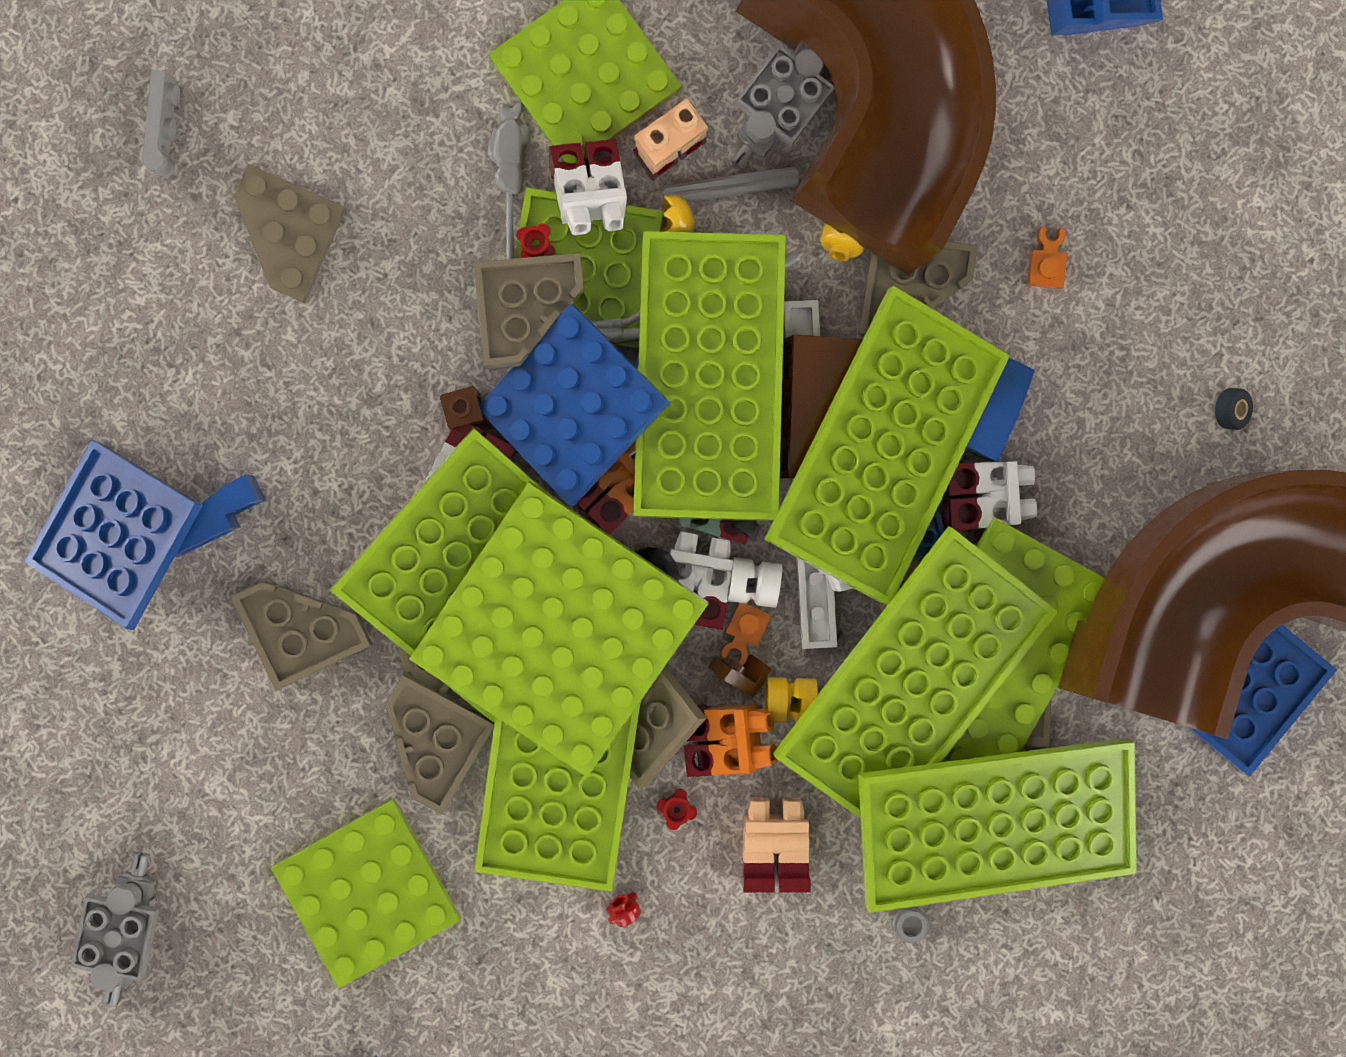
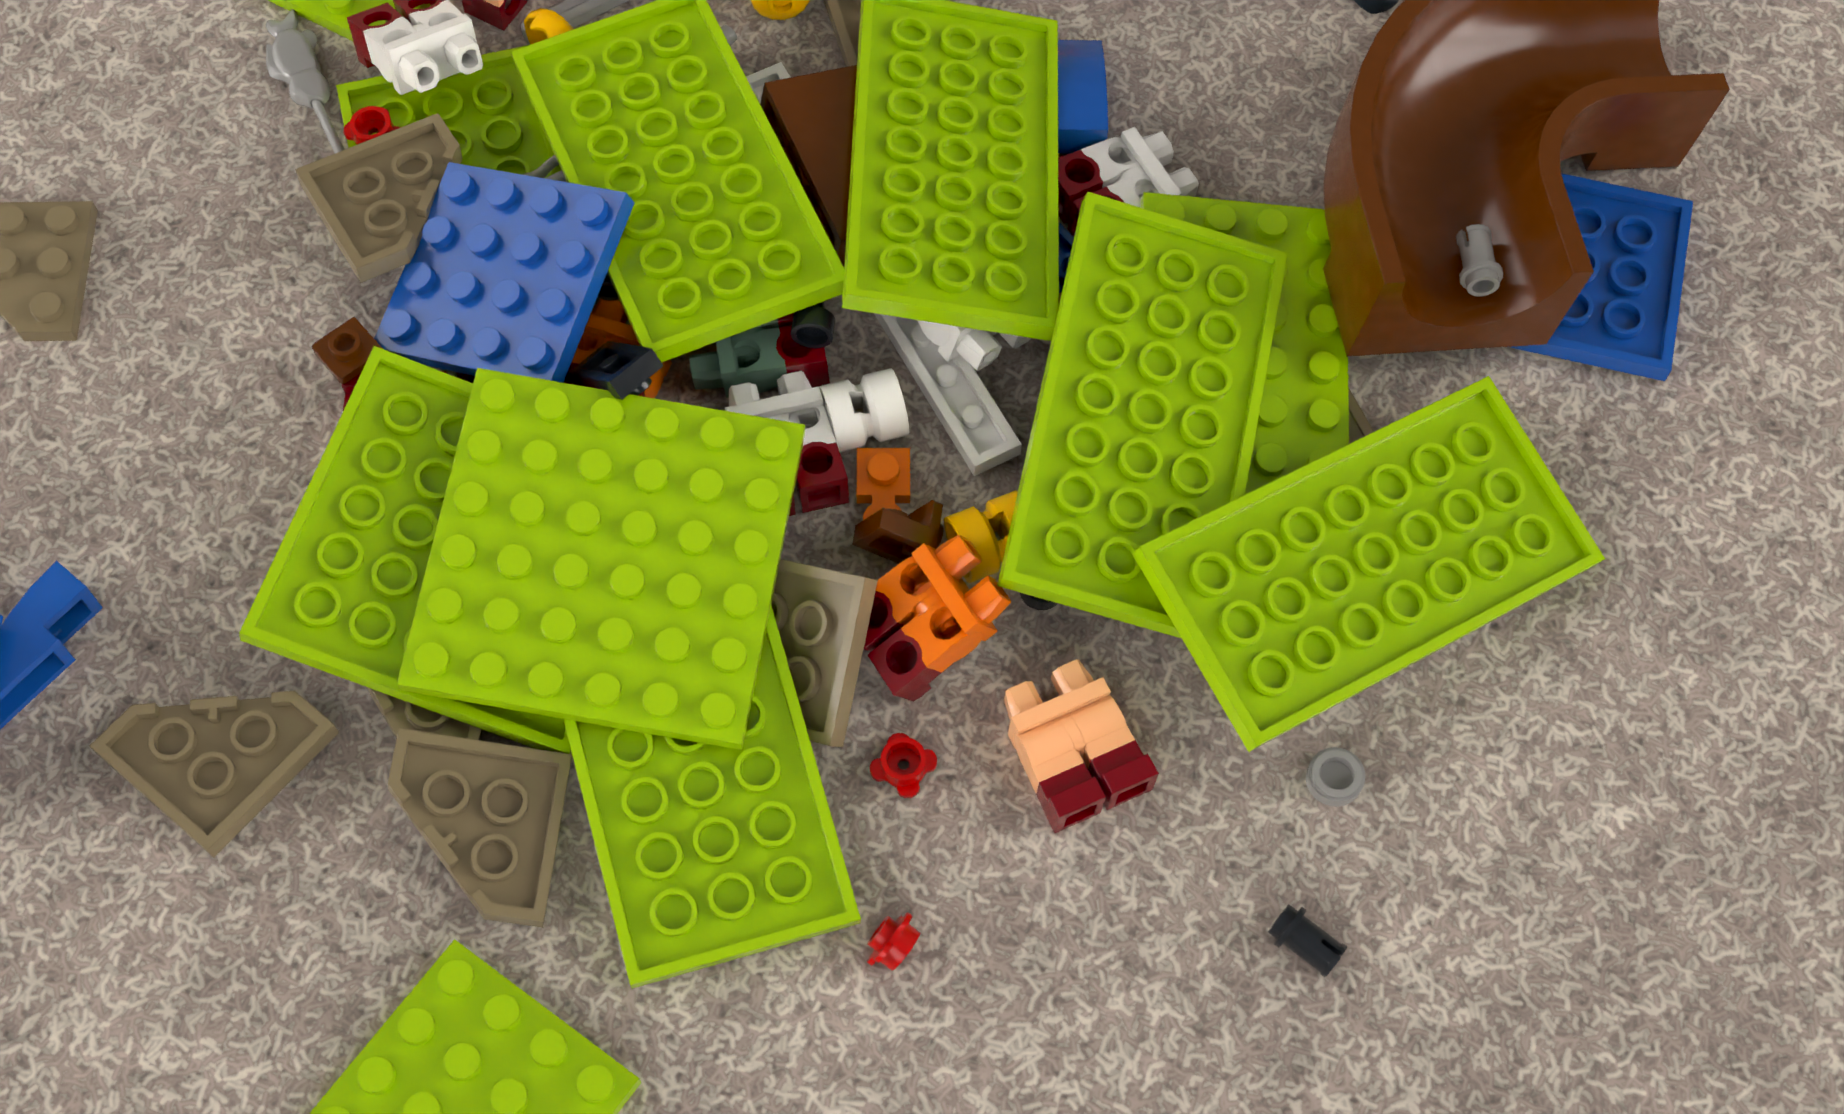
camera: 30 degrees left, 25 degrees down
(612, 511) = (618, 368): none -> black plate
(840, 1000) = (1307, 939): none -> black pin
(1168, 679) = (1480, 271): none -> light grey pin

